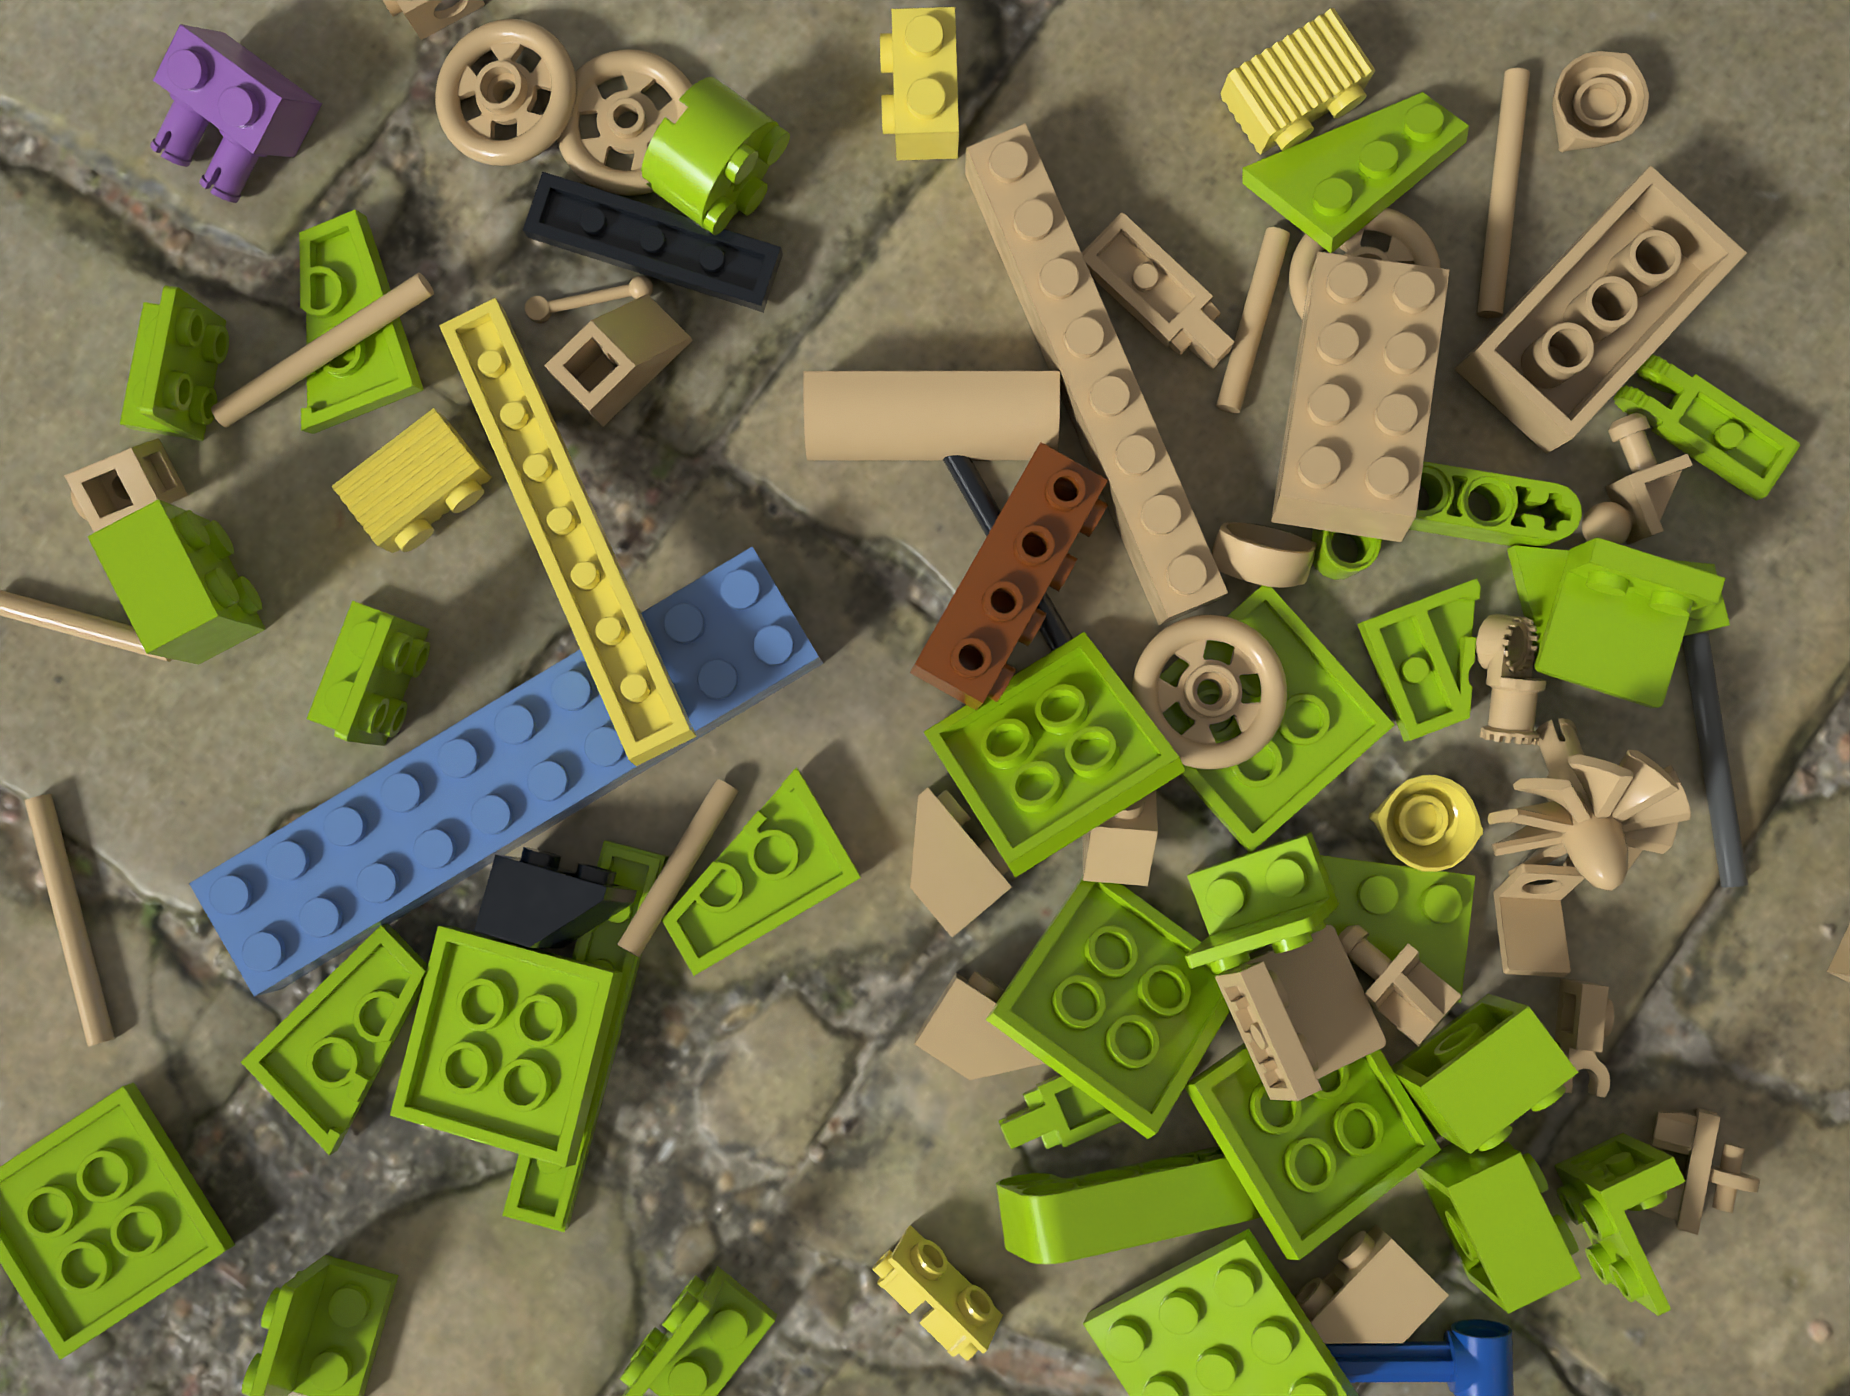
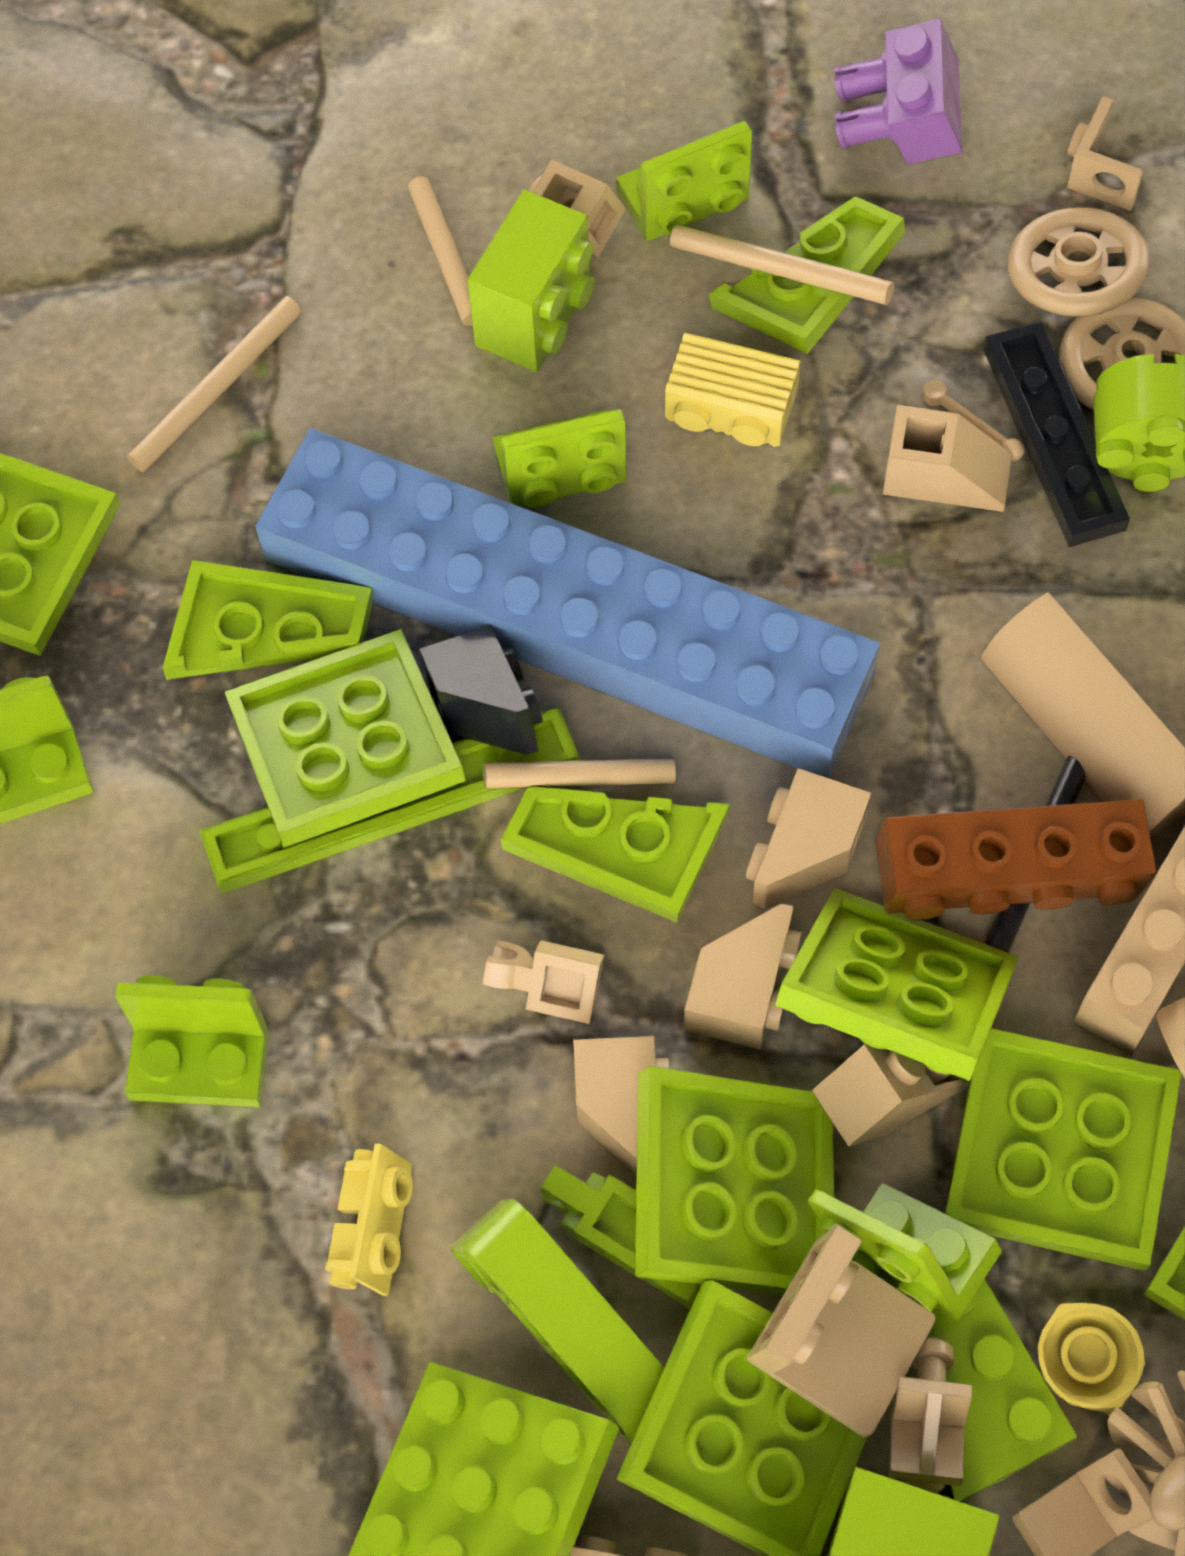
camera: 55 degrees right, 20 degrees down
(568, 534) = (779, 508): light yellow plate -> none
(841, 1014) = (557, 978): none -> tan plate
(871, 719) = (812, 838): none -> tan slope
(1250, 656) = (1078, 1032): tan plate -> none

